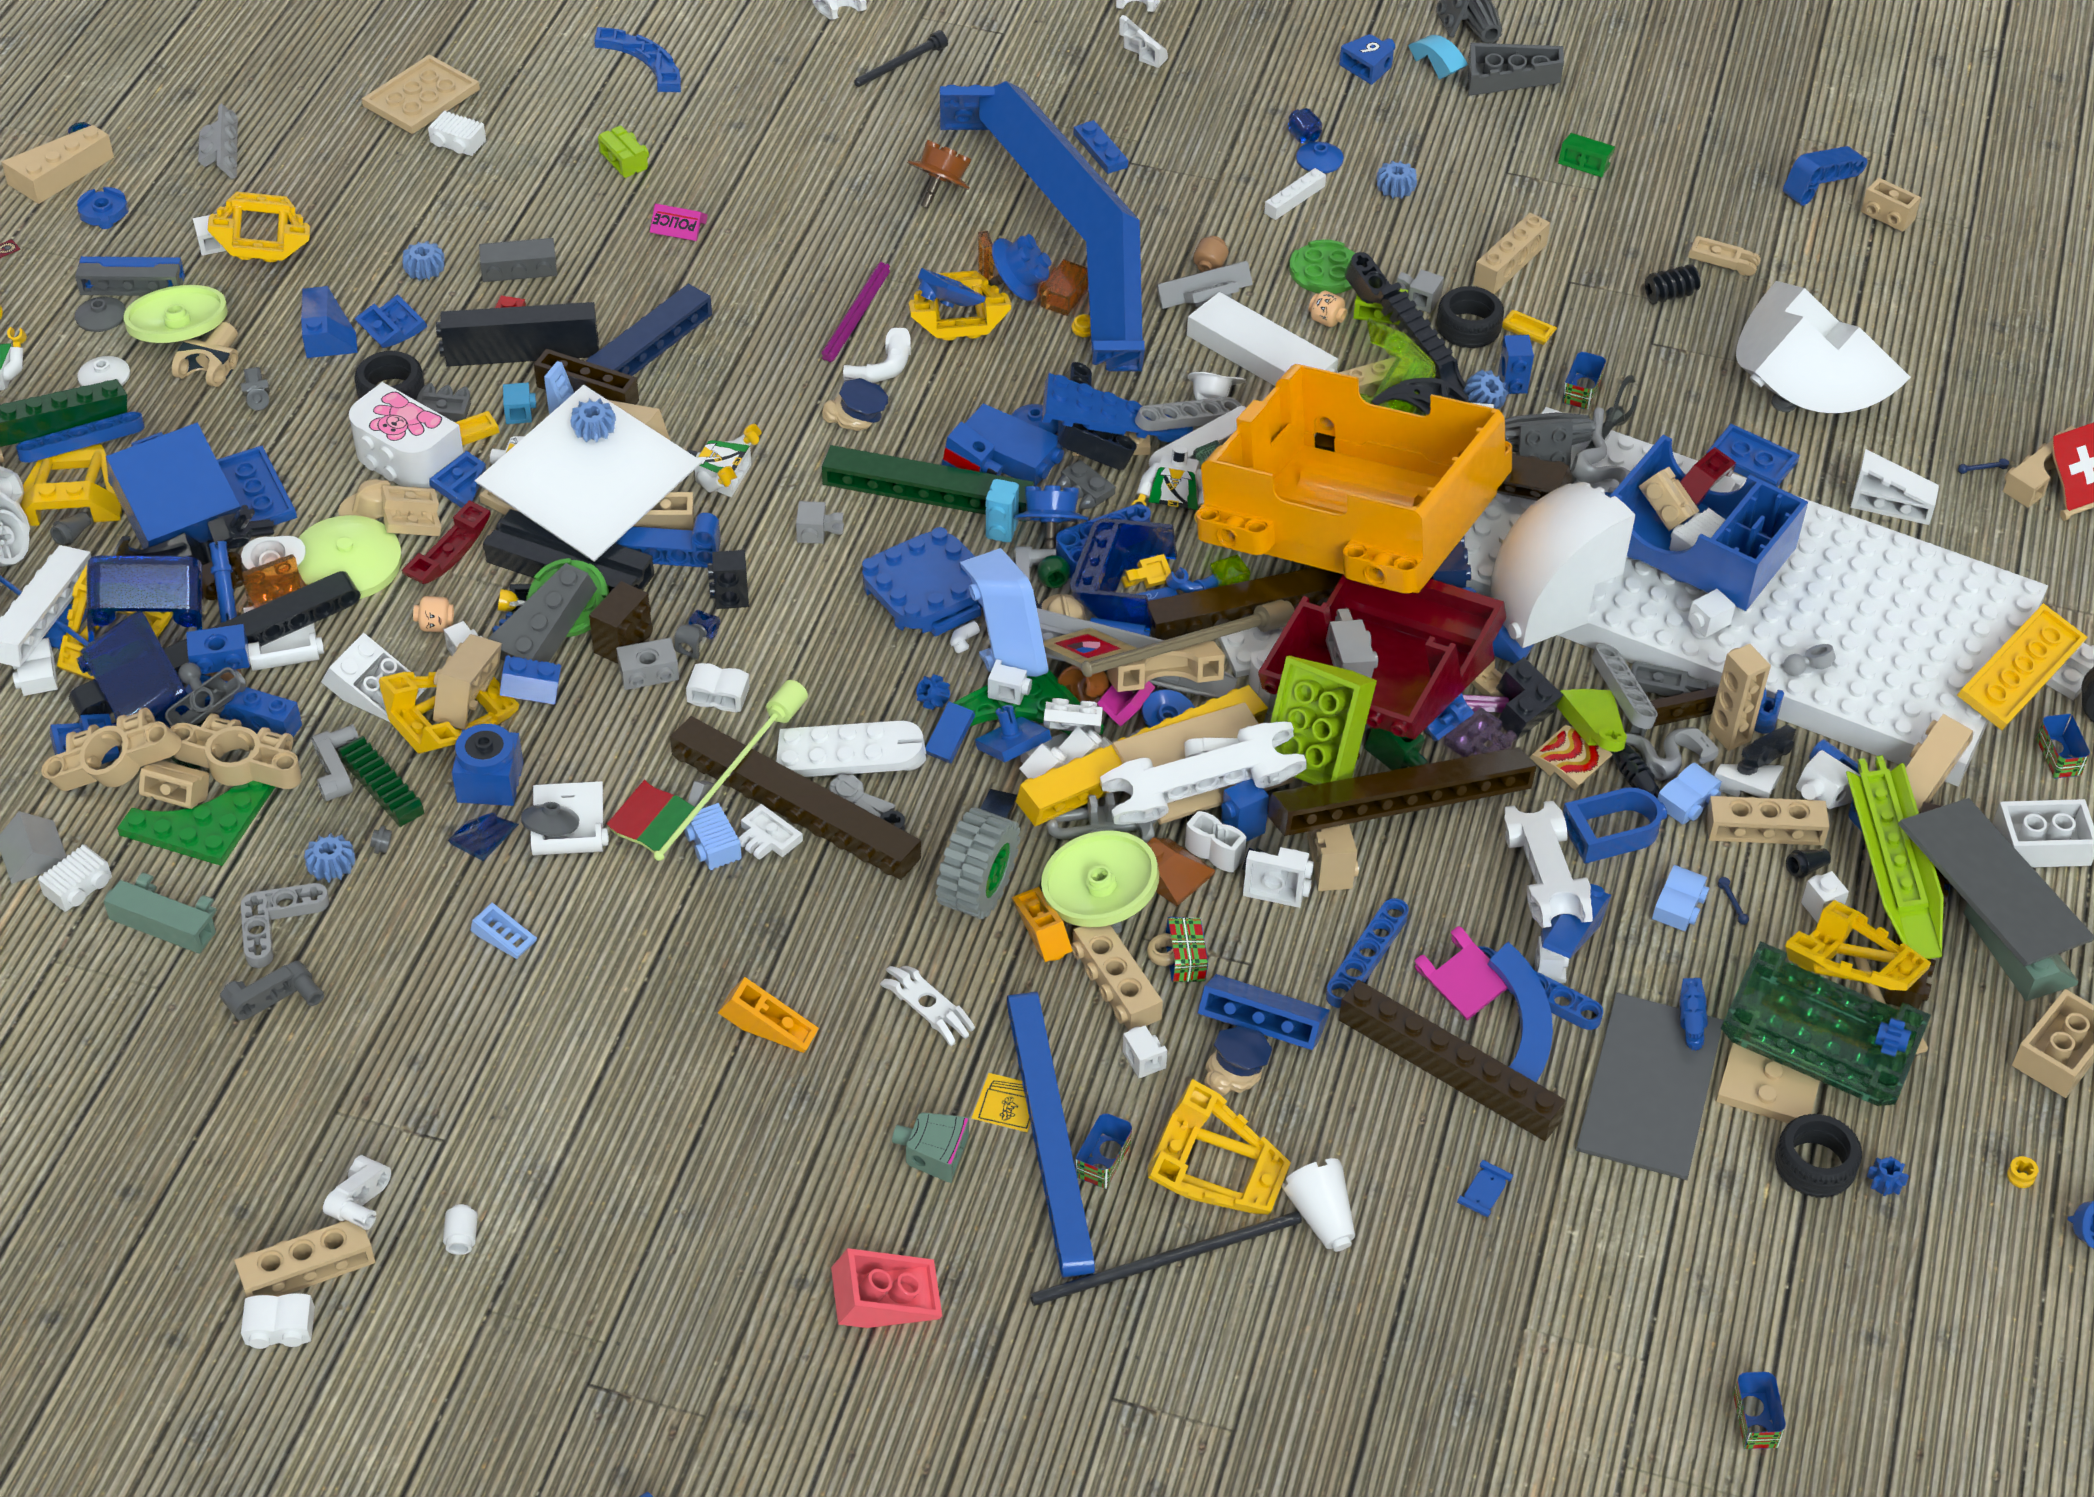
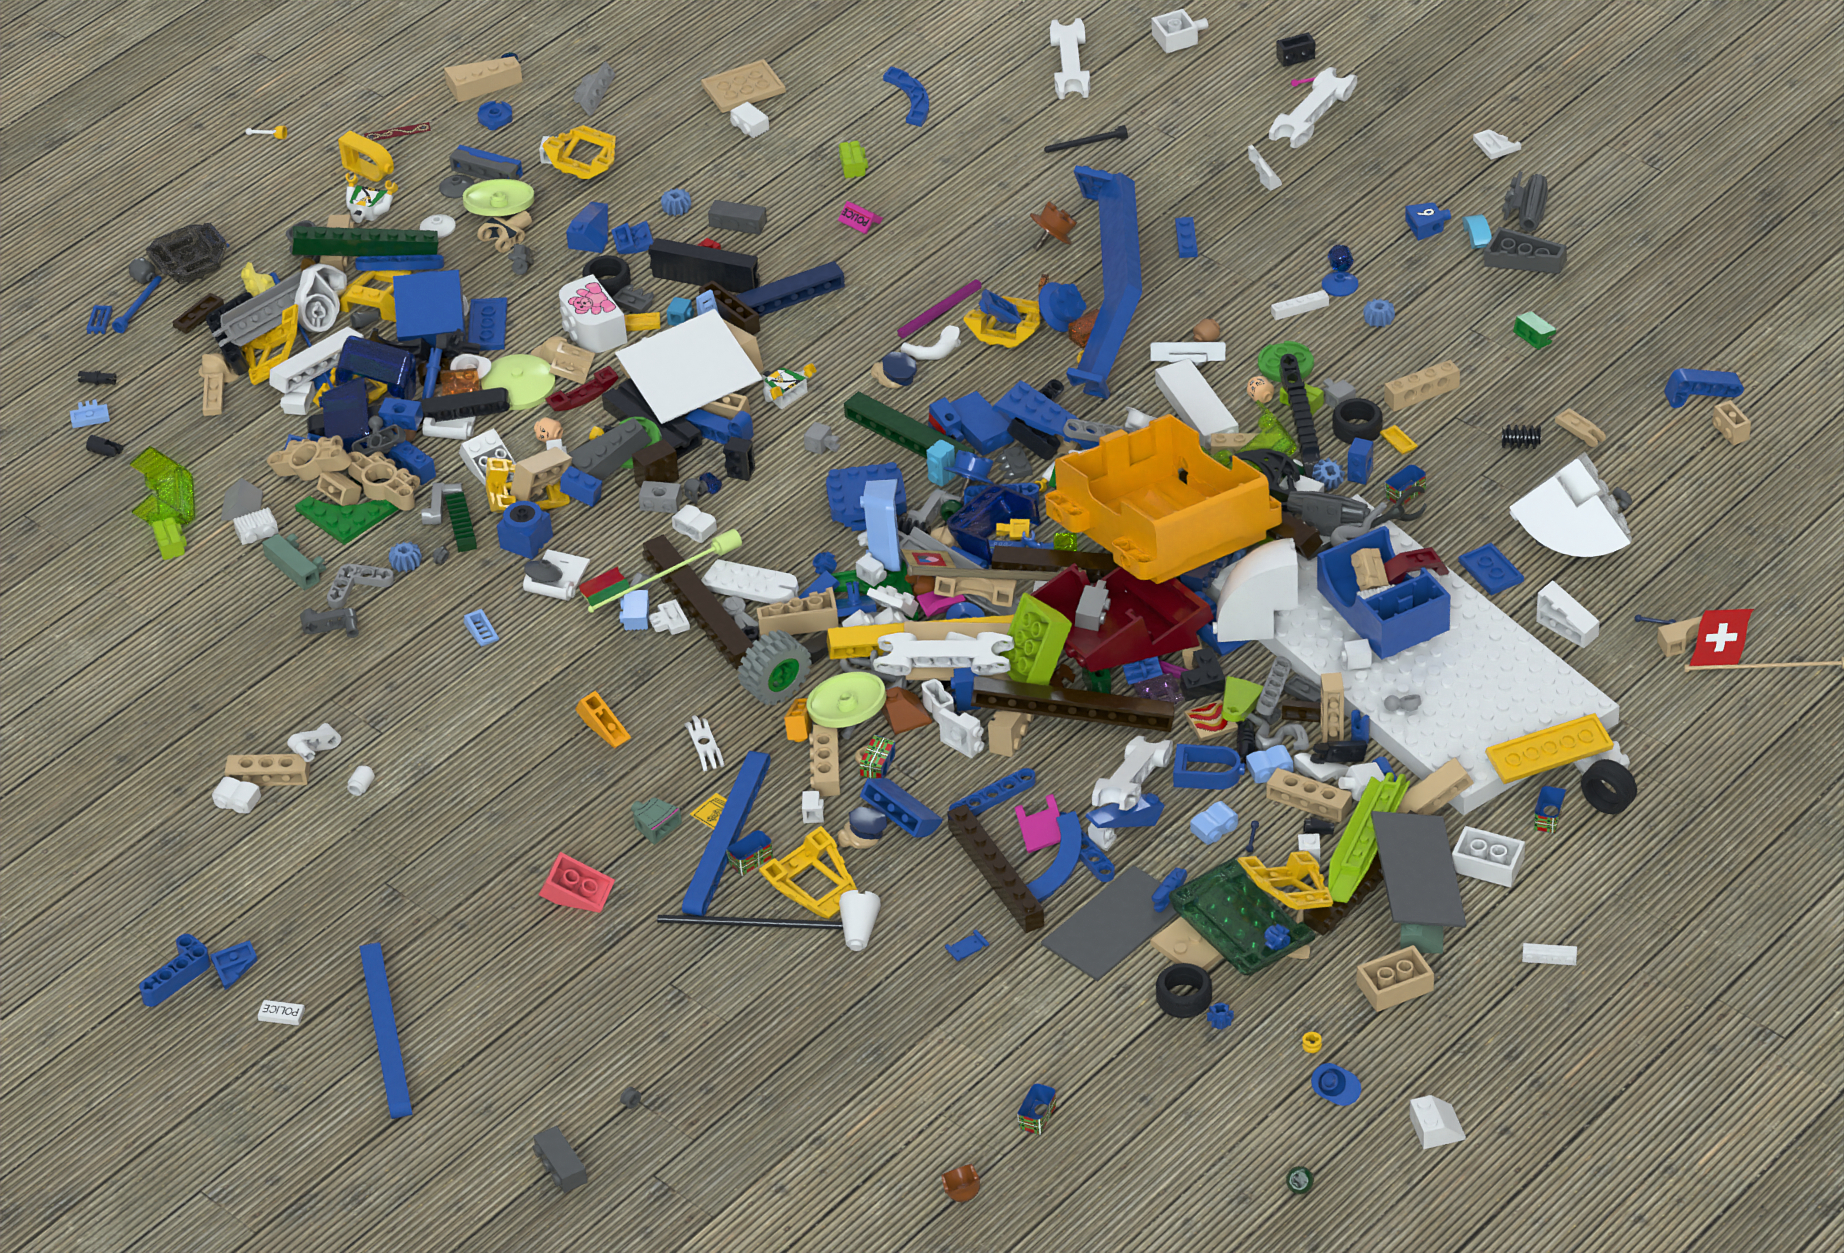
camera: 30 degrees right, 5 degrees down
(458, 479) = (607, 350): blue wing -> none
(482, 835) = (502, 570): clear blue slope -> none
(593, 420) = (705, 332): medium blue gear -> none
(949, 775) = (800, 615): none -> tan wedge

